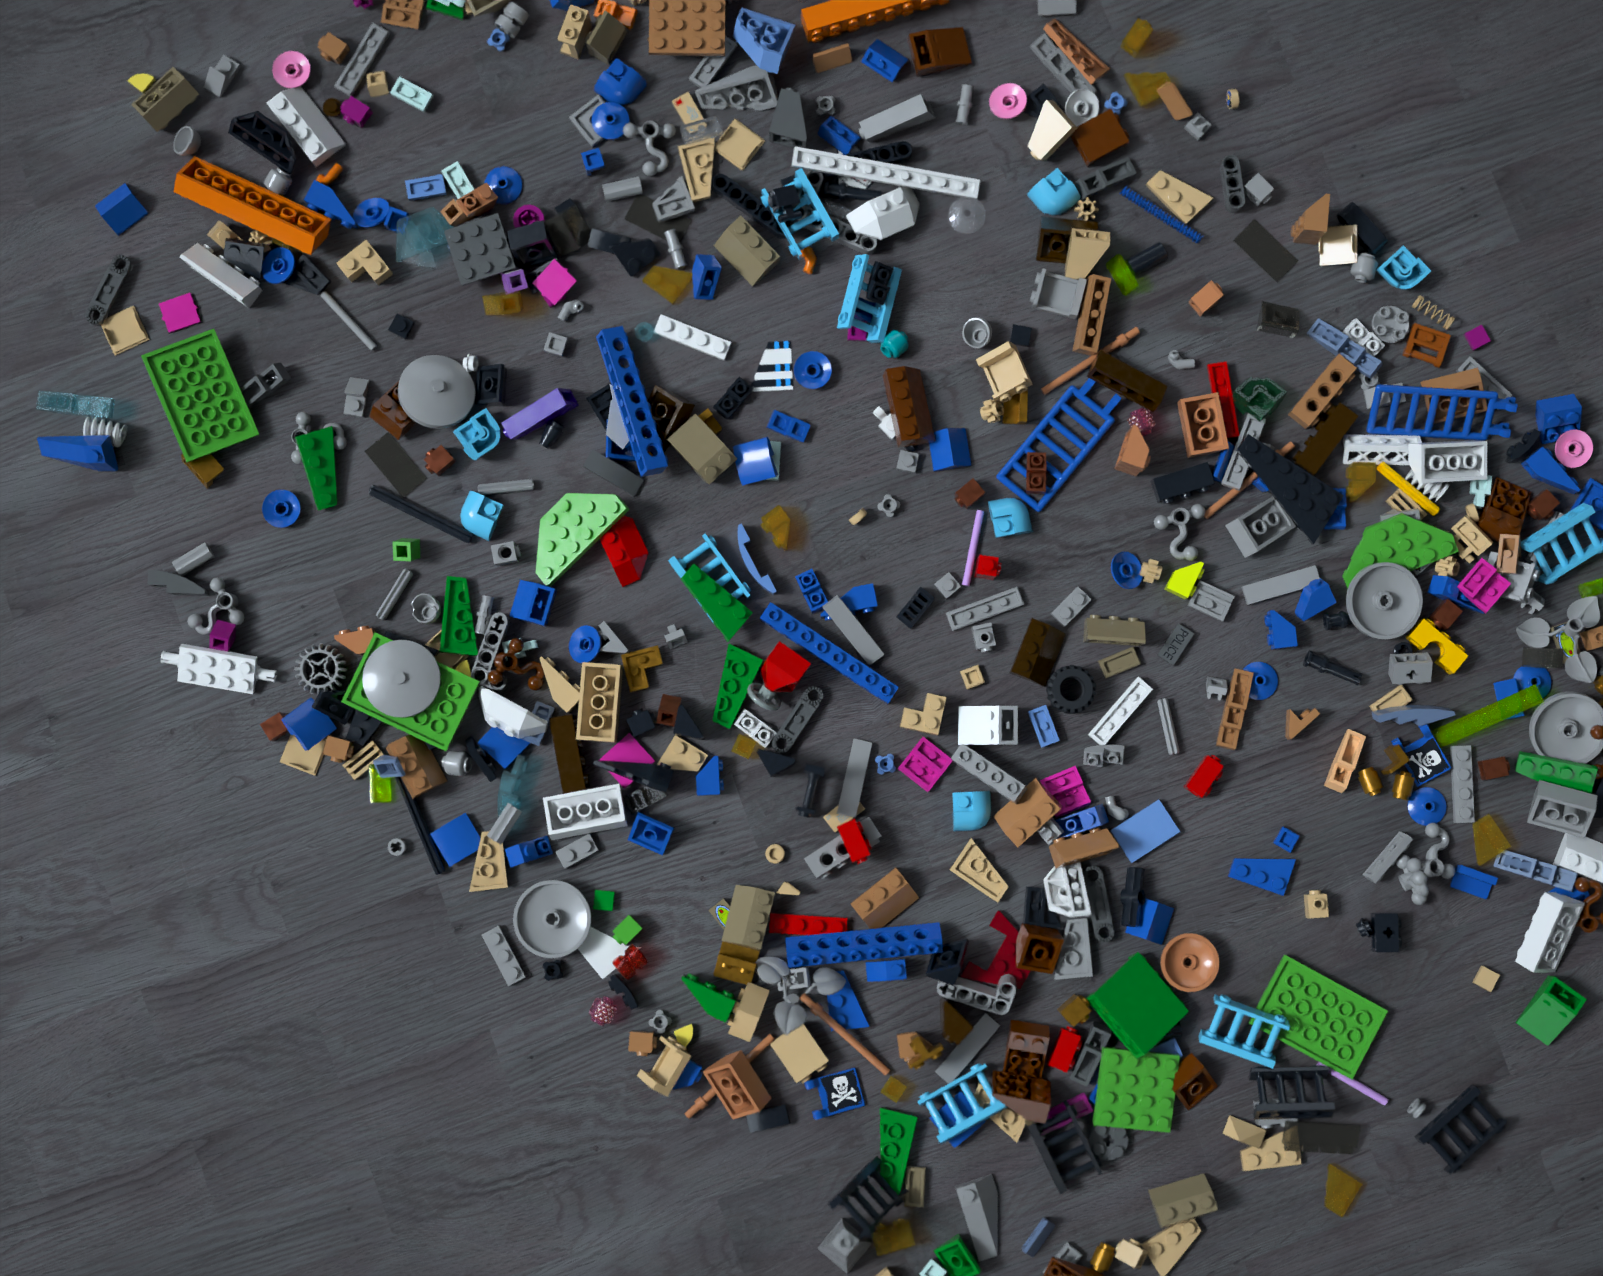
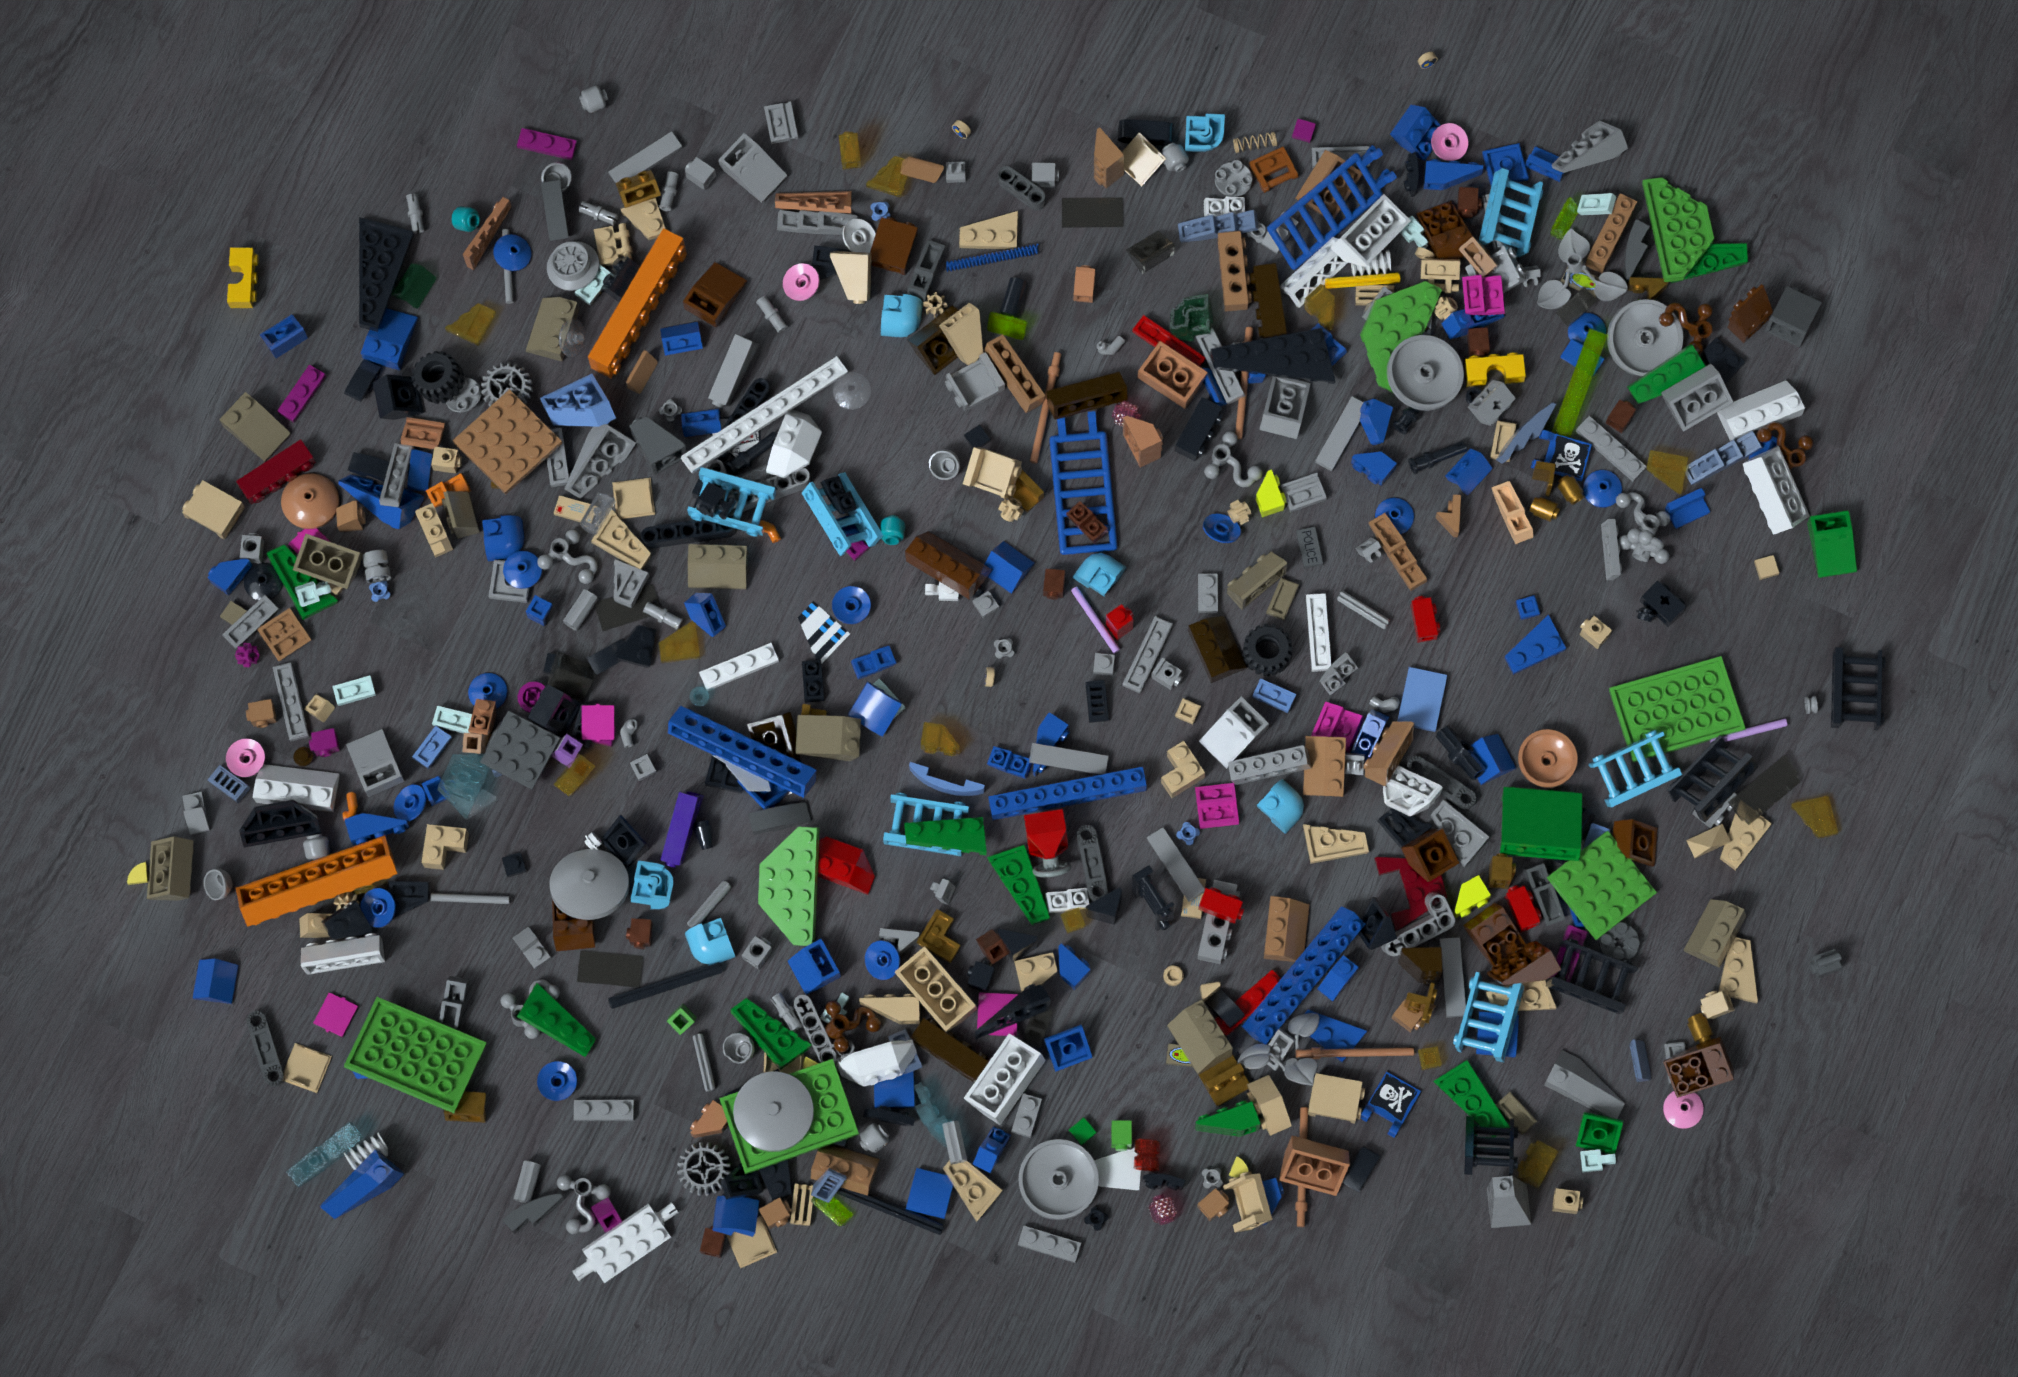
camera: 40 degrees left, 10 degrees down
(266, 91) = (241, 792): none -> sand blue slope
(294, 560) = (603, 1110): none -> light grey plate
(375, 160) = (375, 763): none -> light grey slope
(398, 852) = (885, 1240): light grey bush -> none
(786, 913) = (1225, 1008): none -> black slope
(1038, 1004) = (1471, 894): none -> neon yellow slope
(1344, 701) = (1469, 471): none -> blue panel

